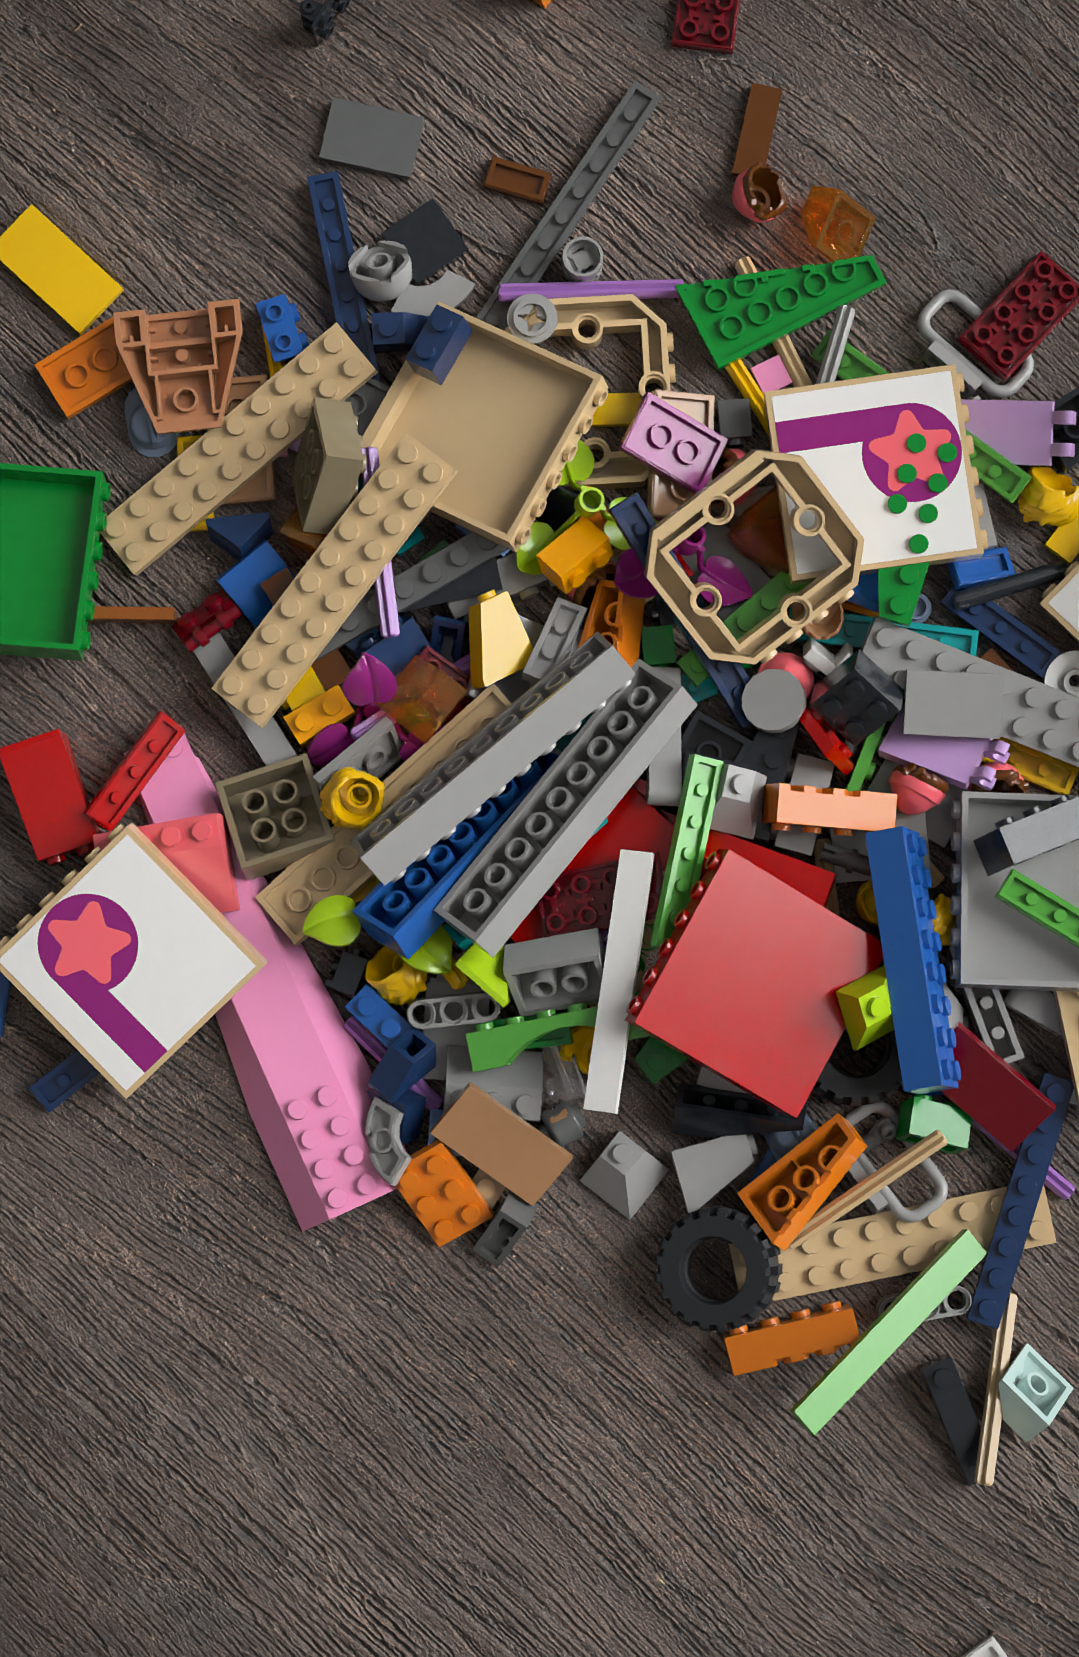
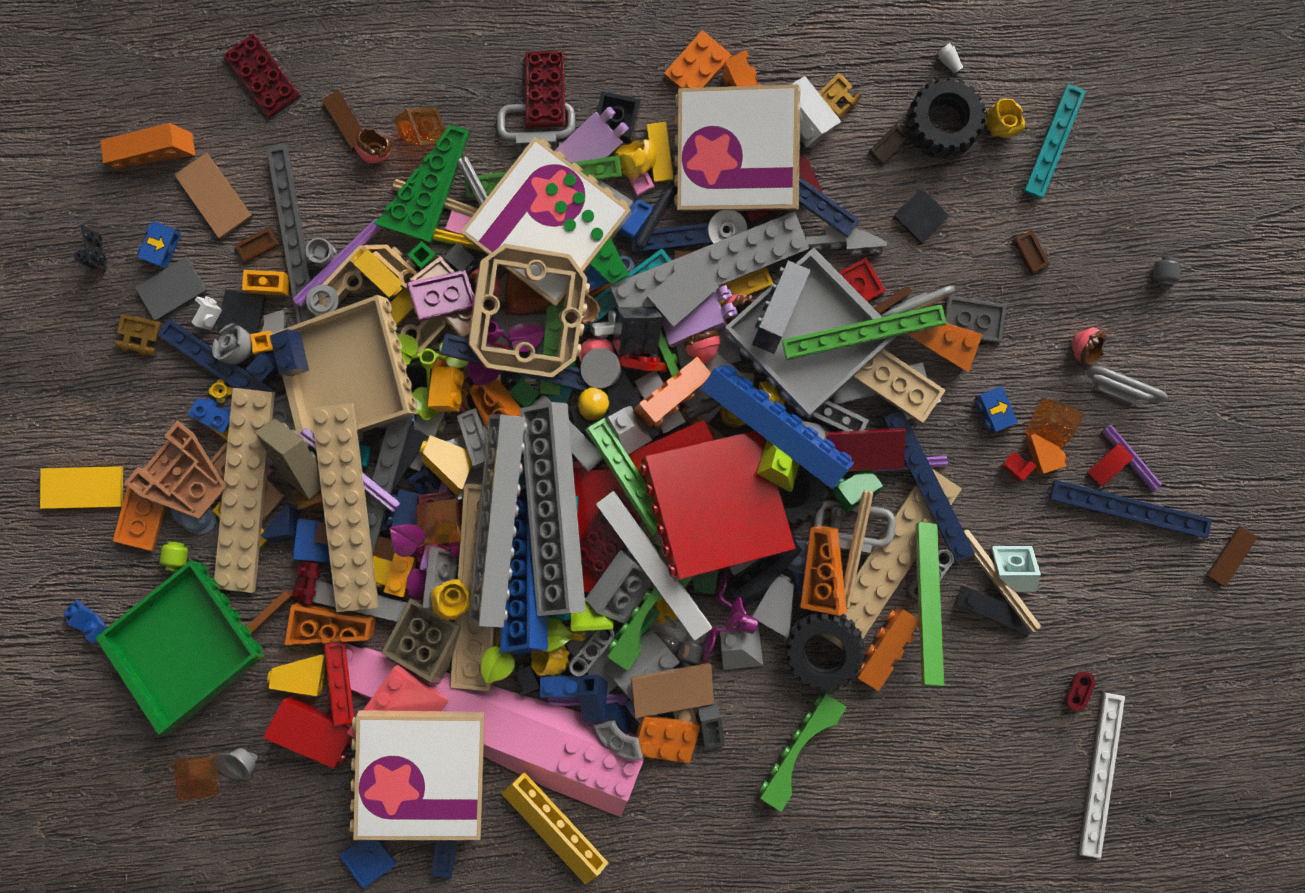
camera: 45 degrees left, 0 degrees up
(86, 447) = (173, 555): none -> lime head
(97, 721) = (299, 676): none -> yellow slope
(181, 690) = (323, 624): none -> orange wedge
(218, 1170) = (555, 828): none -> yellow brick
(294, 151) = (138, 328): none -> pearl gold plate
(311, 301) = (214, 390): none -> yellow plate
(385, 207) = (207, 313): none -> white bracket
(406, 75) = (159, 244): none -> blue brick
(418, 300) = (261, 342): none -> light orange slope
(486, 235) = (265, 283): none -> light orange brick
(514, 1373) = (823, 715): none -> bright green arch
(522, 76) = (213, 195): none -> medium nougat tile
(625, 345) = (376, 272): none -> yellow slope
(656, 1141) = (737, 618): none -> magenta plant
(693, 376) = (422, 256): none -> green brick
(726, 733) = (593, 403): none -> yellow hair
(966, 1608) = (1082, 692): none -> dark red plate
(1027, 535) = (641, 184): none -> bright pink tile

